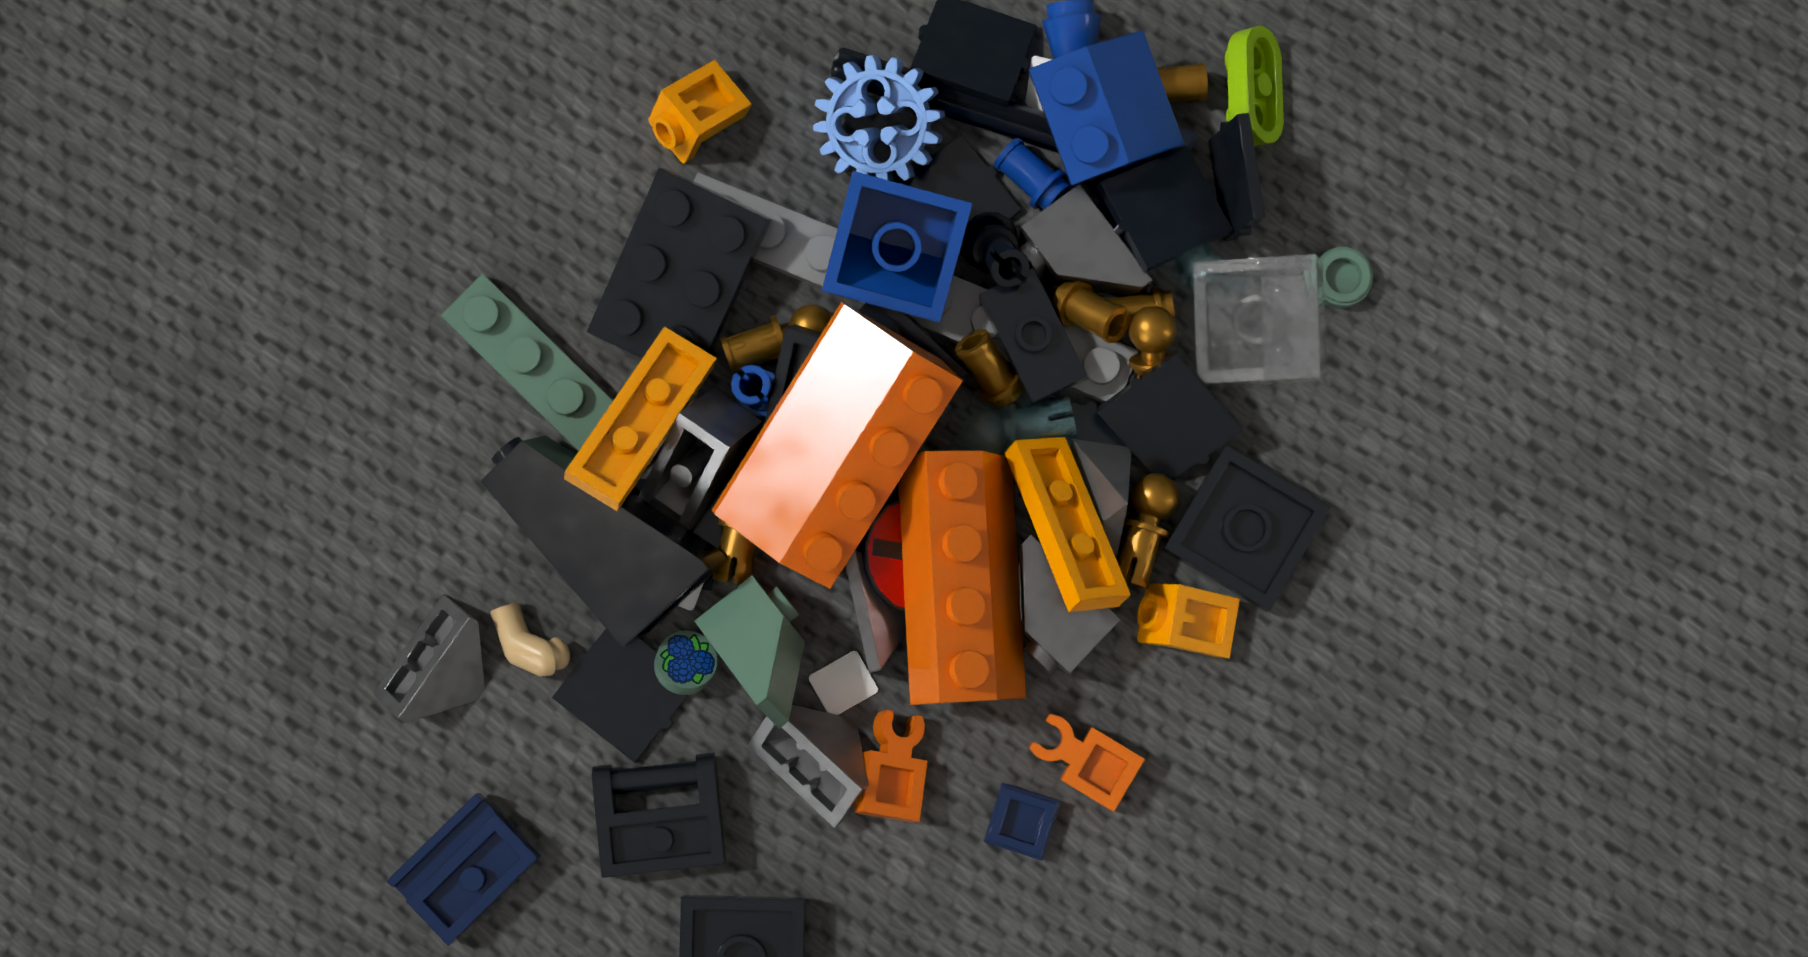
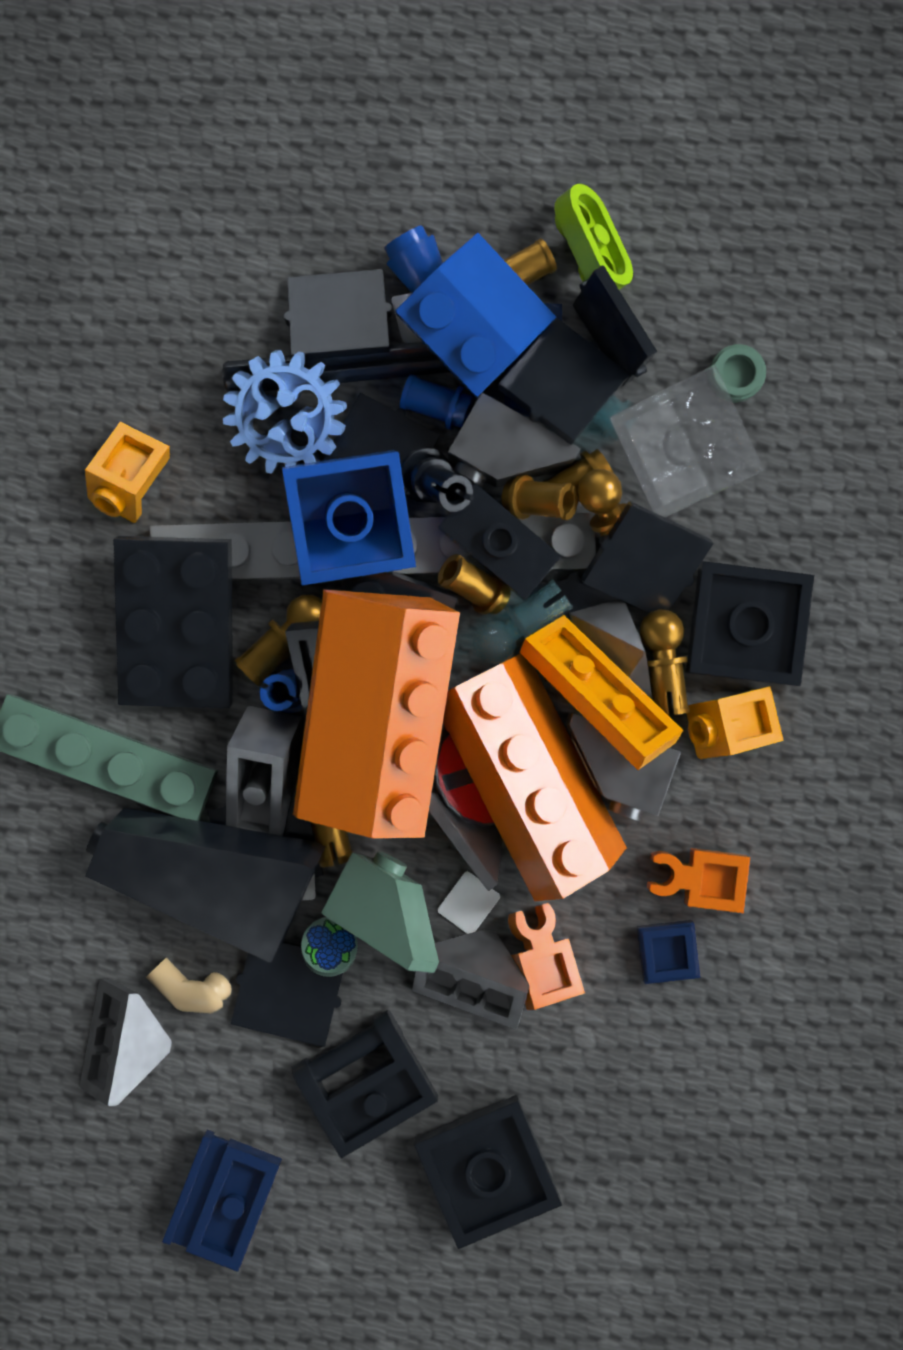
camera: 20 degrees left, 5 degrees up
(639, 419) = (195, 765): light orange plate -> none

